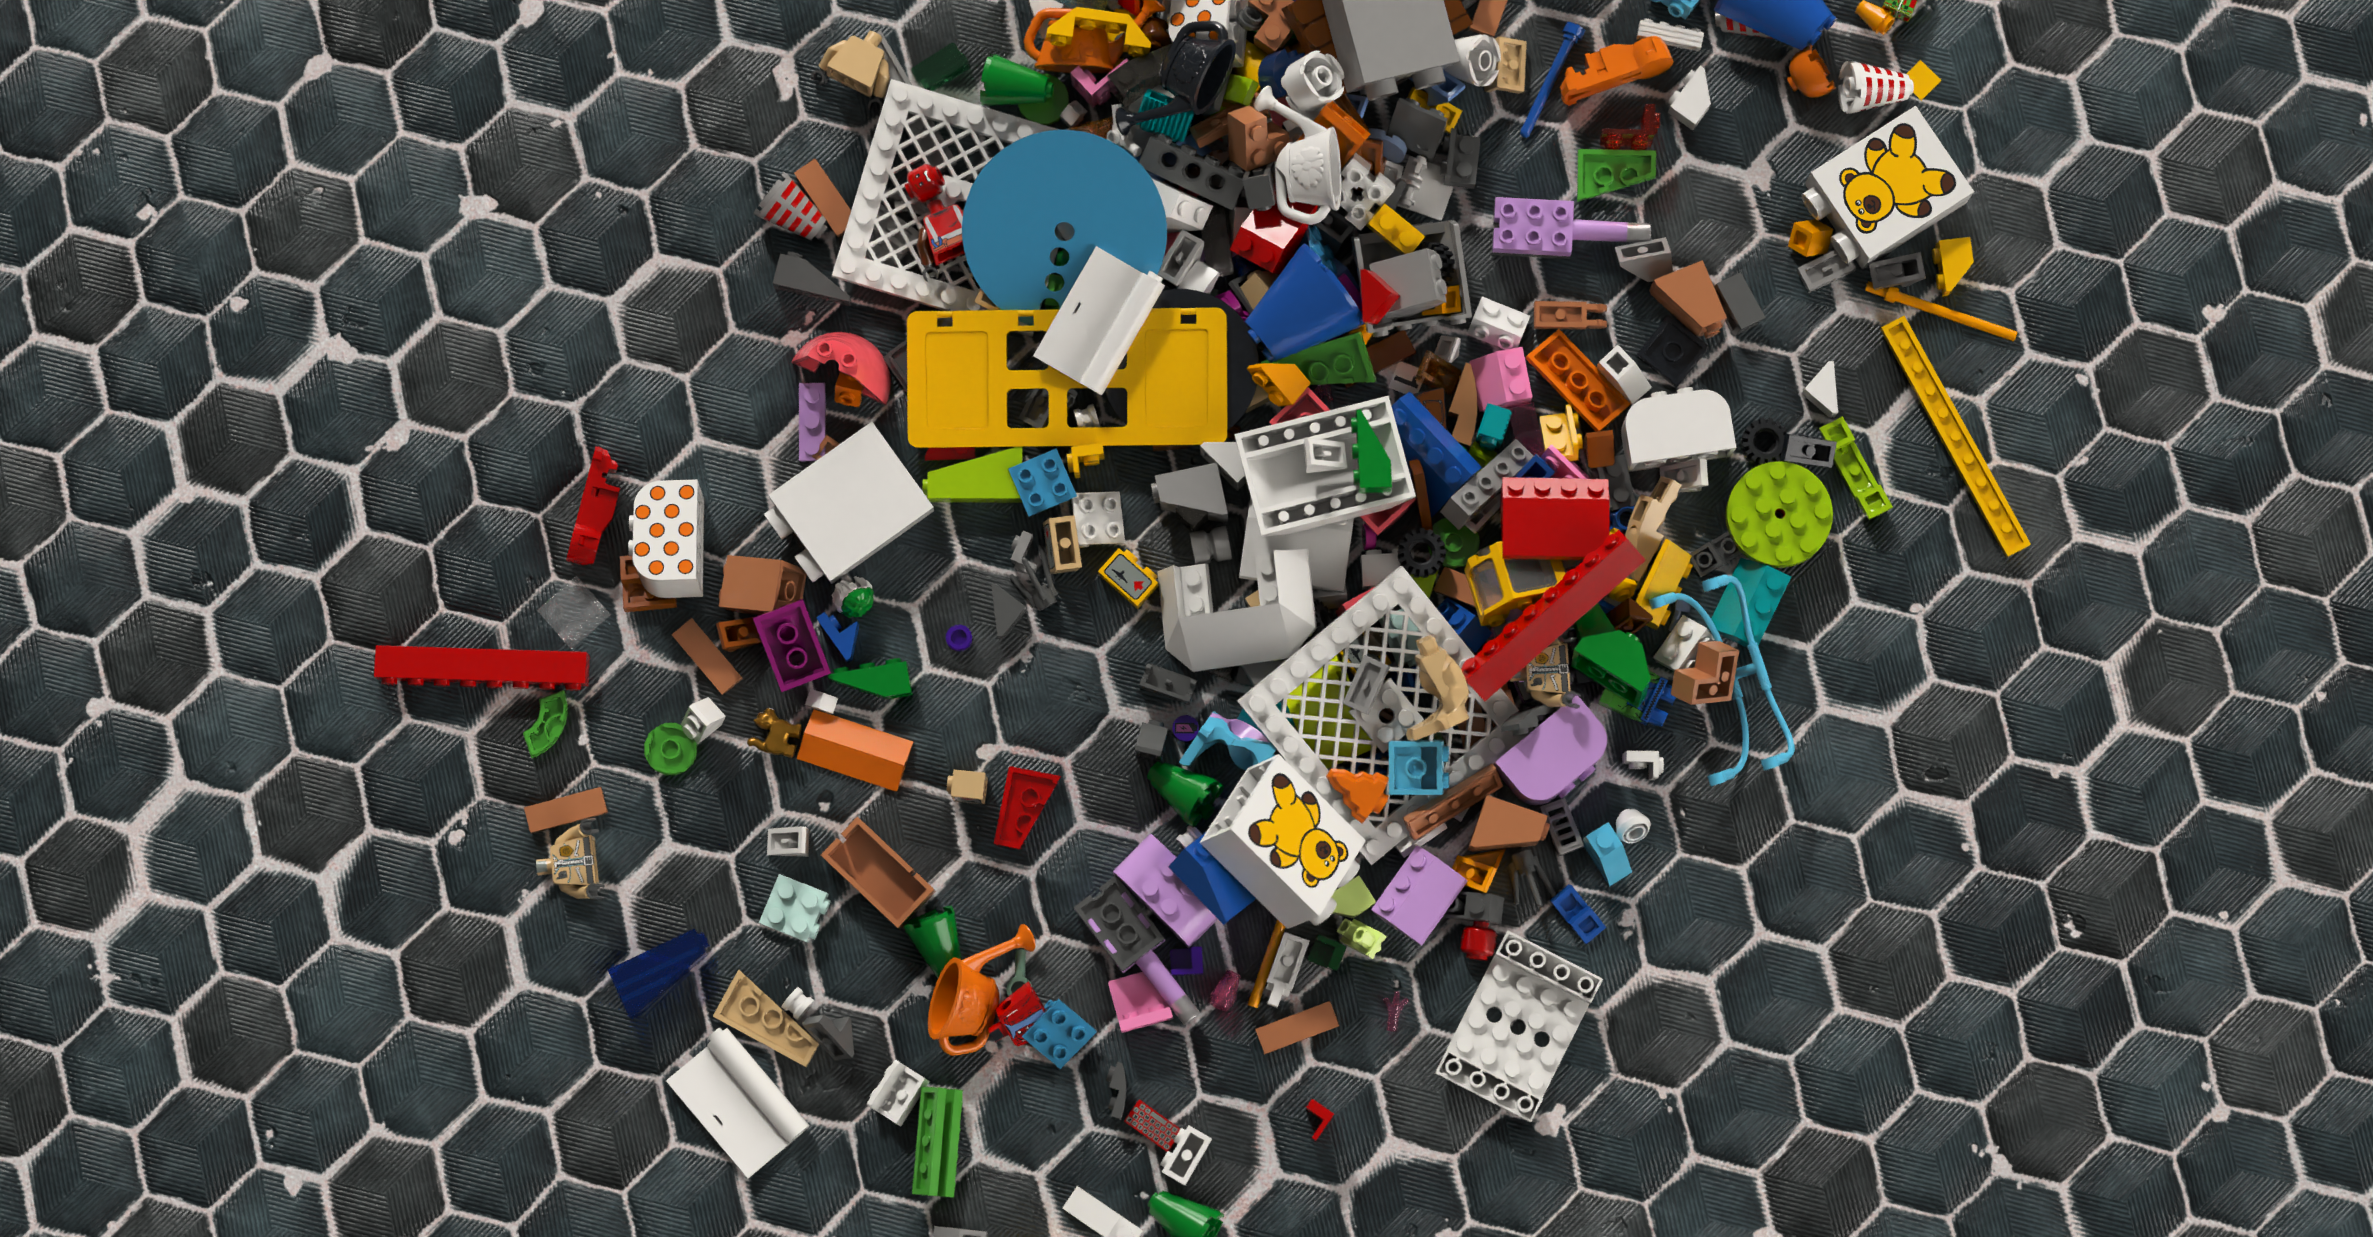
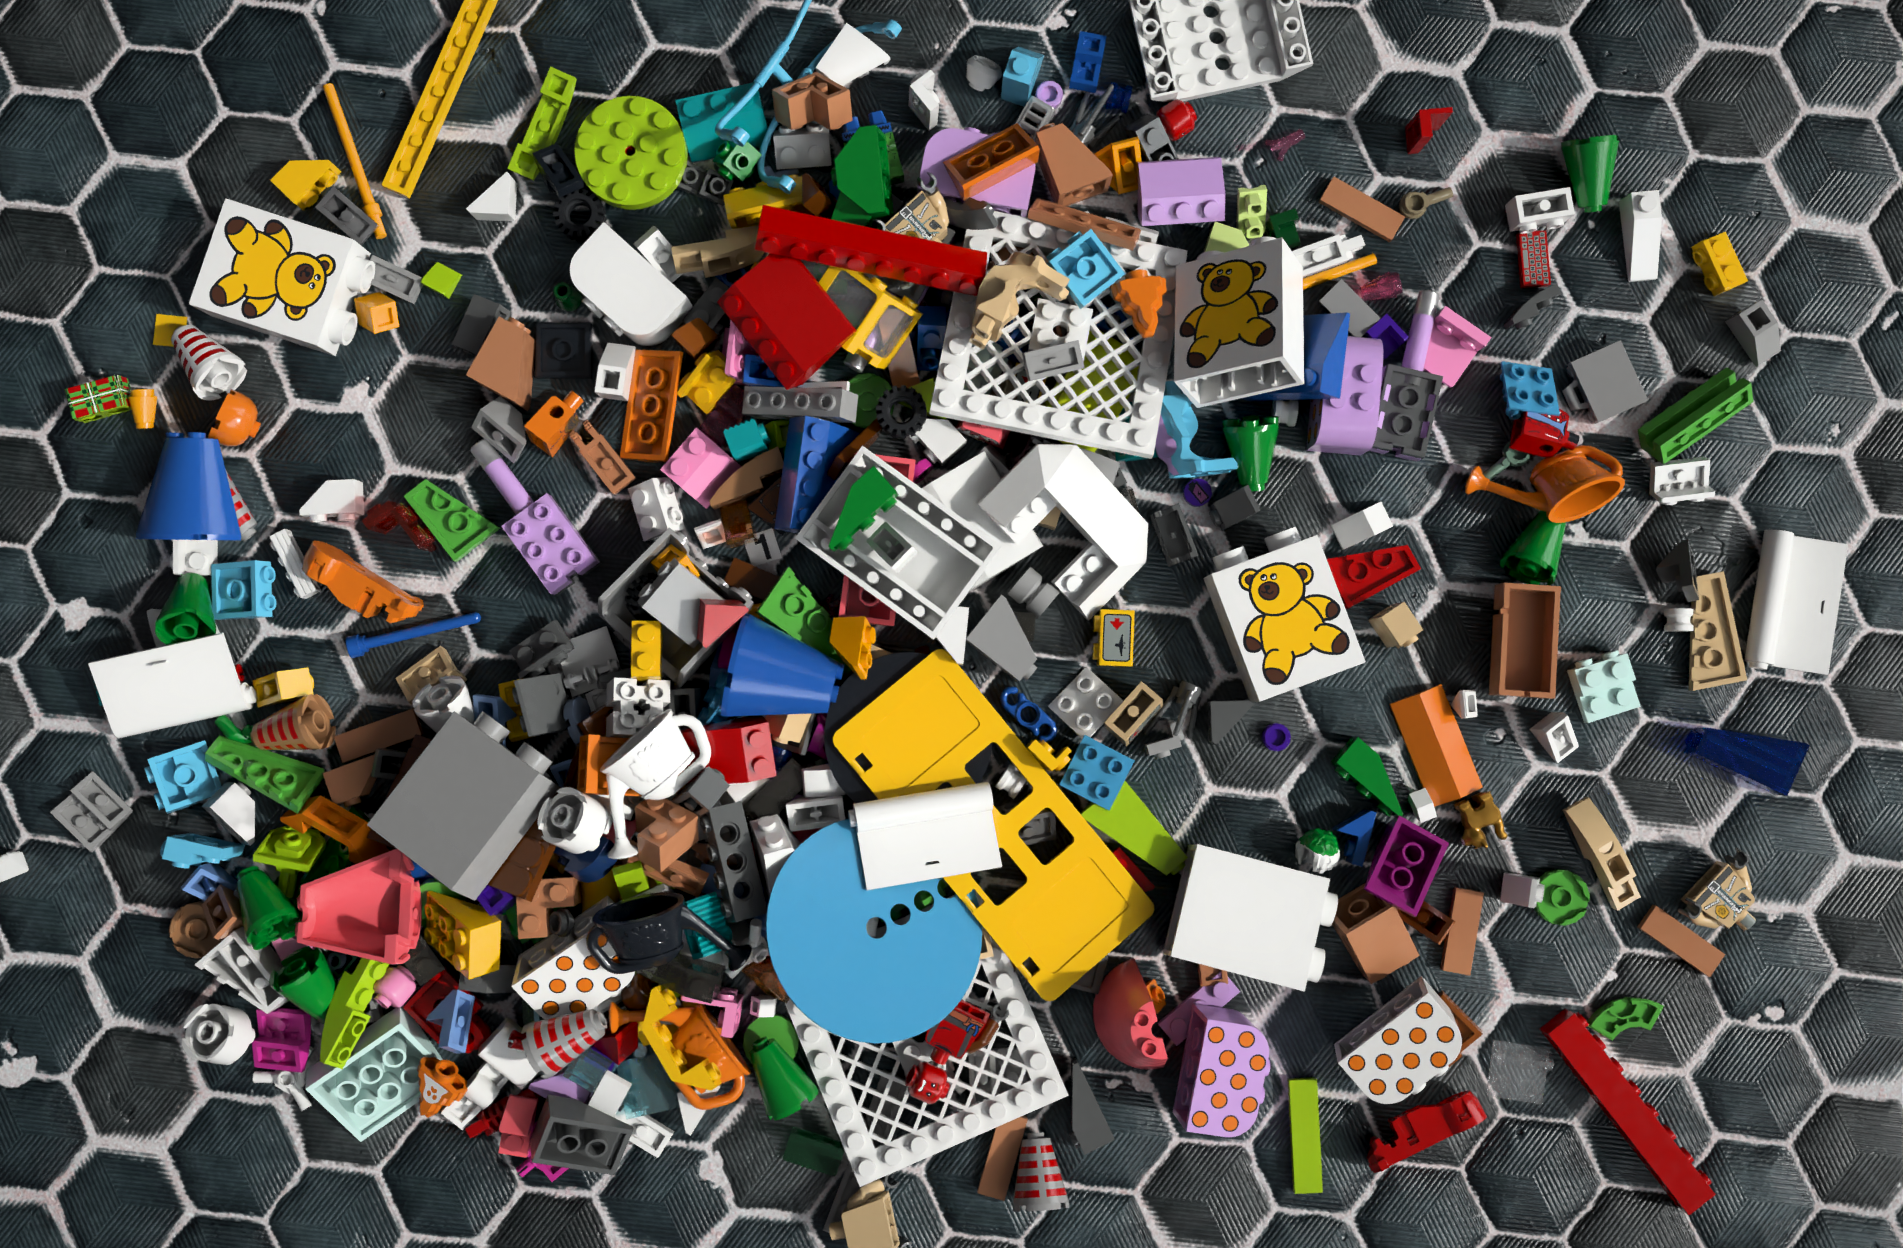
camera: 135 degrees left, 5 degrees up
(658, 423) = (1305, 1135): none -> lime tile
(678, 802) = (1604, 851): none -> tan slope
(757, 396) = (1221, 1073): none -> lavender brick
(867, 796) = (1465, 703): none -> white slope
(1016, 1097) = (1605, 383): none -> light grey piece
(1044, 709) = (1282, 615): none -> brick
(1060, 830) = (1361, 525): none -> white slope
(1135, 464) = (1015, 710): none -> blue piece
(1228, 952) = (1344, 299): none -> light grey hinge
(1268, 1069) = (1414, 203): none -> dark tan plate
(1530, 912) = (1119, 98): none -> clear blue wheel
(1552, 761) = (992, 161): none -> orange slope
(1575, 864) = (1050, 93): none -> lavender tile
(1621, 289) = (553, 422): none -> orange torso
(1702, 383) = (571, 300): none -> dark green cone
(1712, 597) = (736, 161): none -> green brick
(1723, 737) = (850, 57): none -> white slope
(1798, 304) = (441, 280): none -> lime slope

